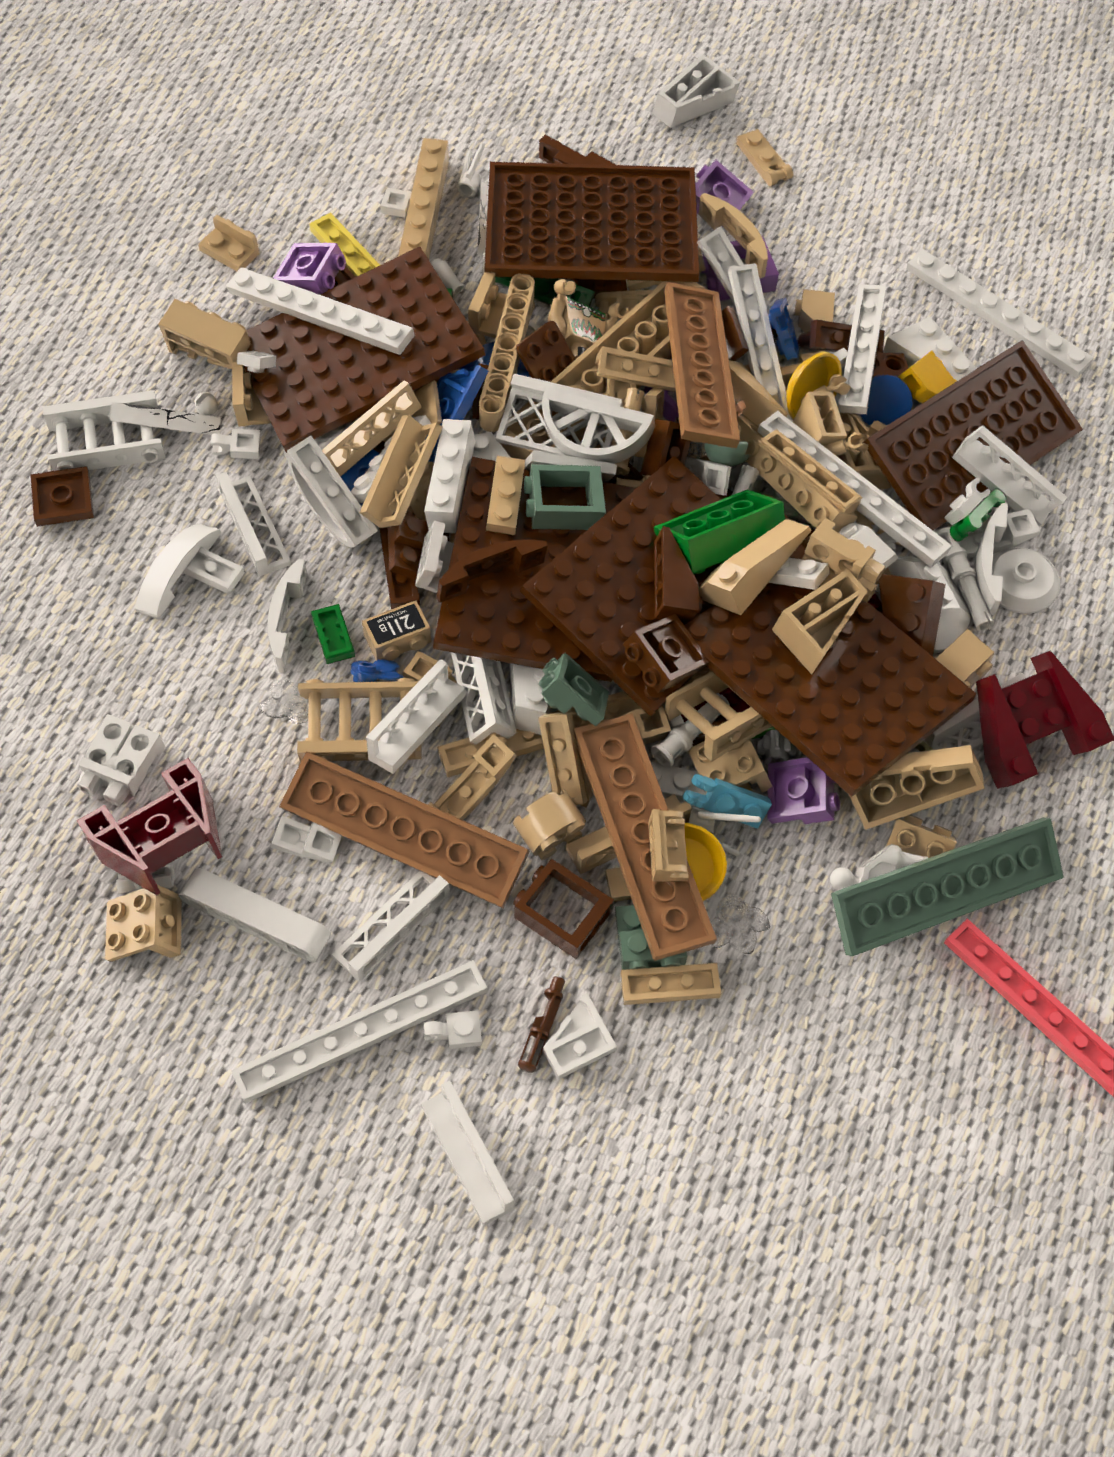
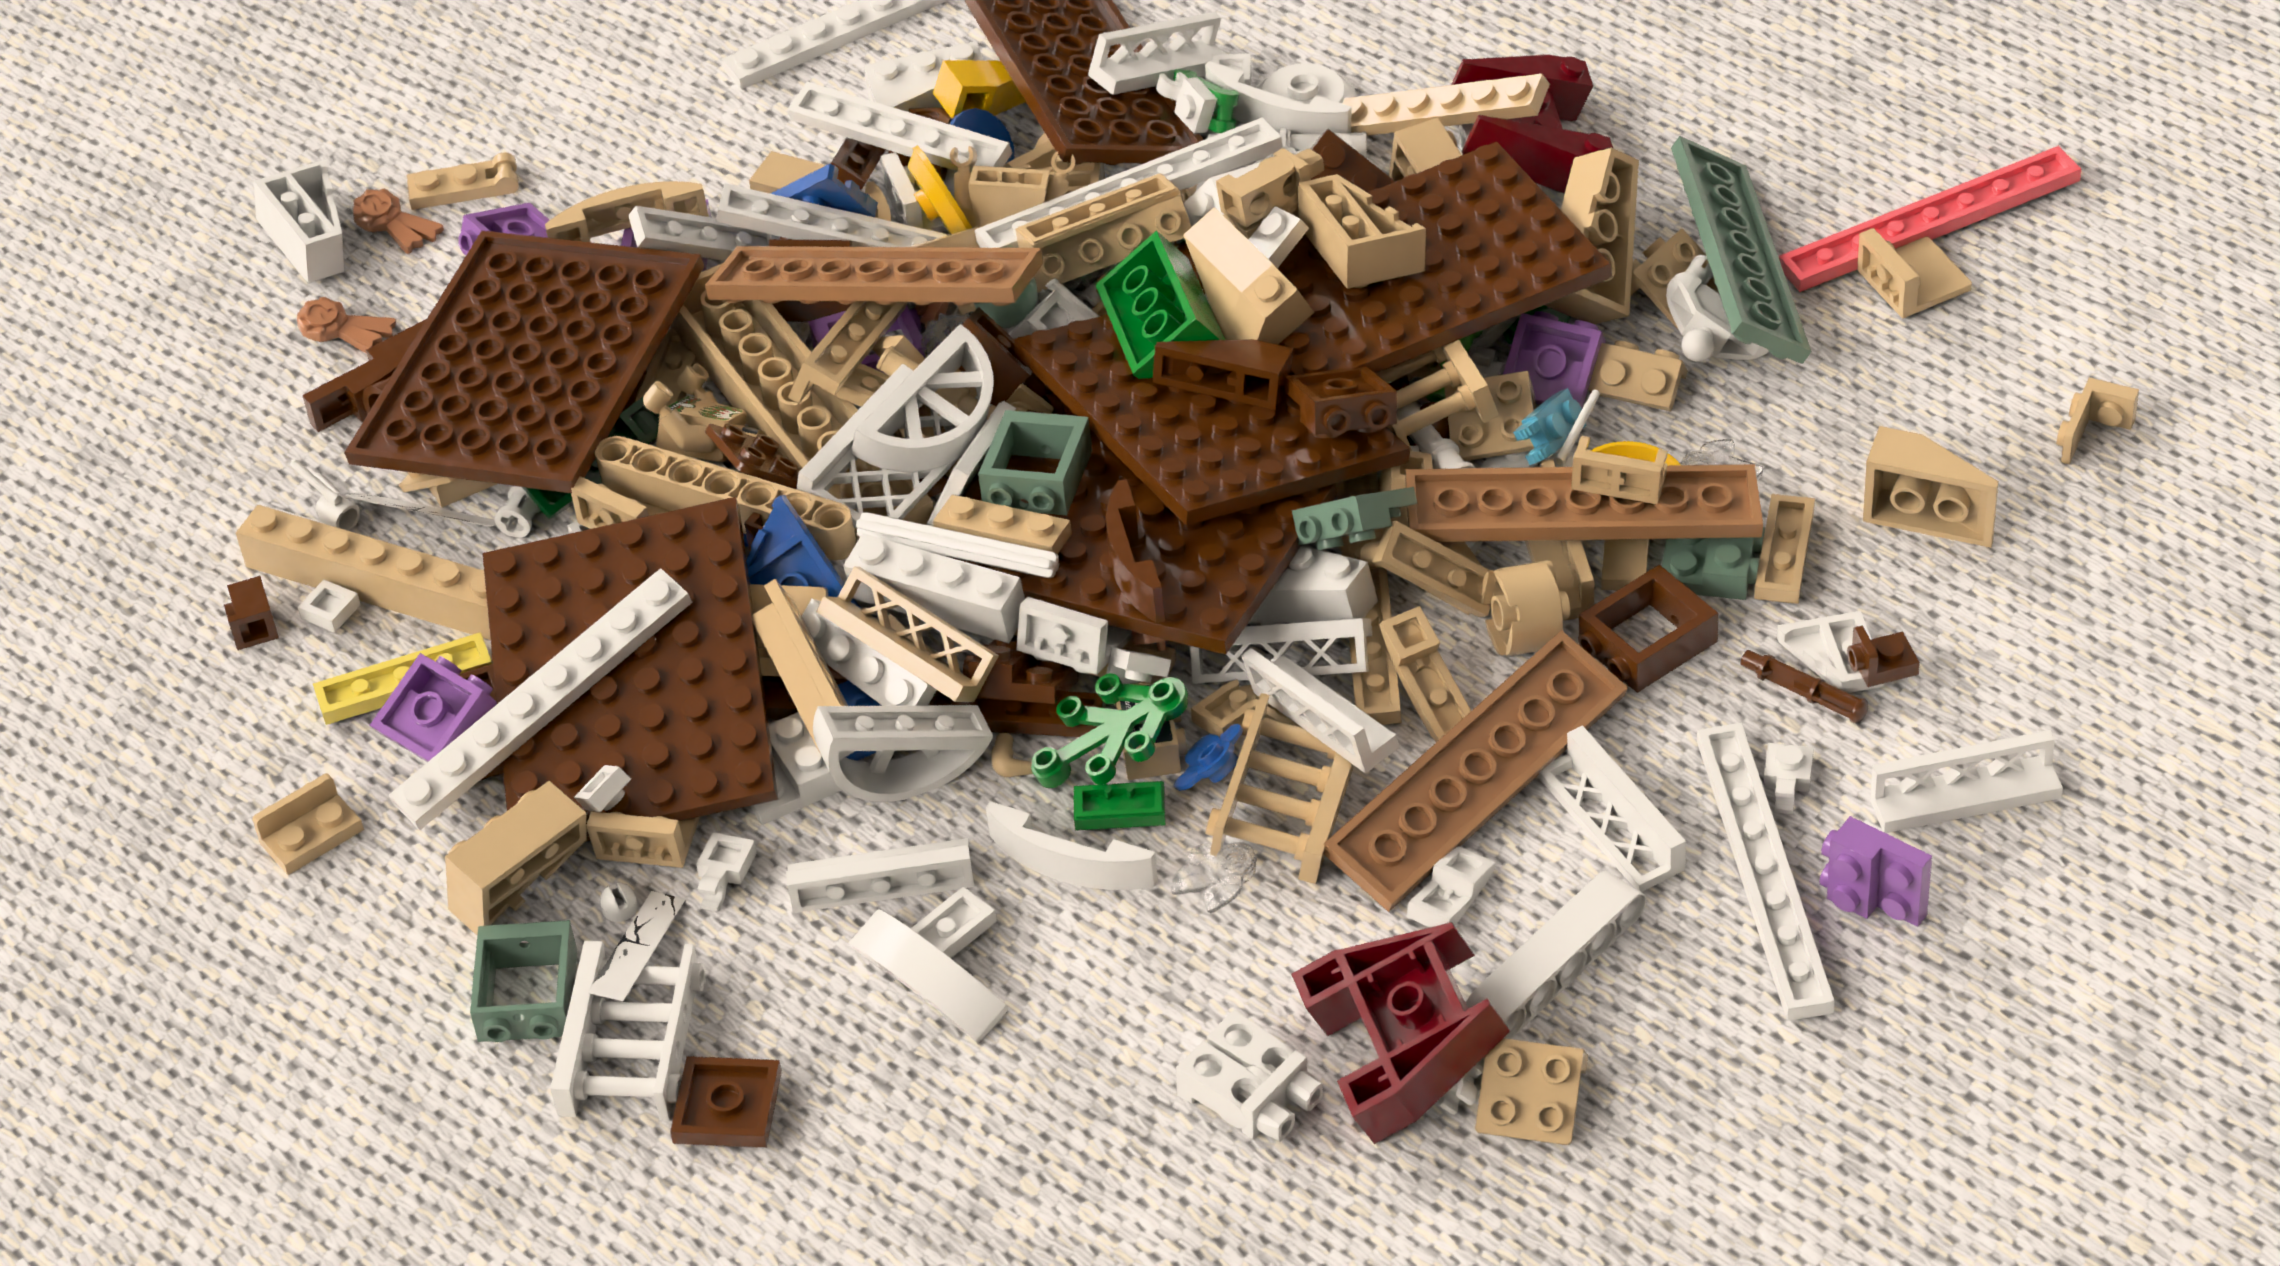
camera: 65 degrees left, 15 degrees down
(125, 358) = (503, 948): none -> sand green window
(354, 1093) = (1875, 871): none -> medium lavender plate
(361, 562) = (1003, 759): none -> tan animal
(379, 169) = (250, 614): none -> reddish brown brick
(400, 628) = (1156, 704): none -> green plant
(426, 606) = (1136, 666): none -> white bracket
(479, 475) = (960, 545): none -> white axle
(565, 1068) = (1882, 658): none -> reddish brown bracket
(623, 130) = (327, 320): none -> nougat piece
(720, 126) = (382, 212): none -> nougat piece
(746, 1047) = (1927, 489): none -> tan slope
(813, 849) = (1637, 375): none -> tan bracket
(887, 1192) = (2101, 403): none -> tan bracket
(987, 1018) = (1910, 275): none -> tan bracket
(1017, 657) = (1451, 104): none -> tan plate

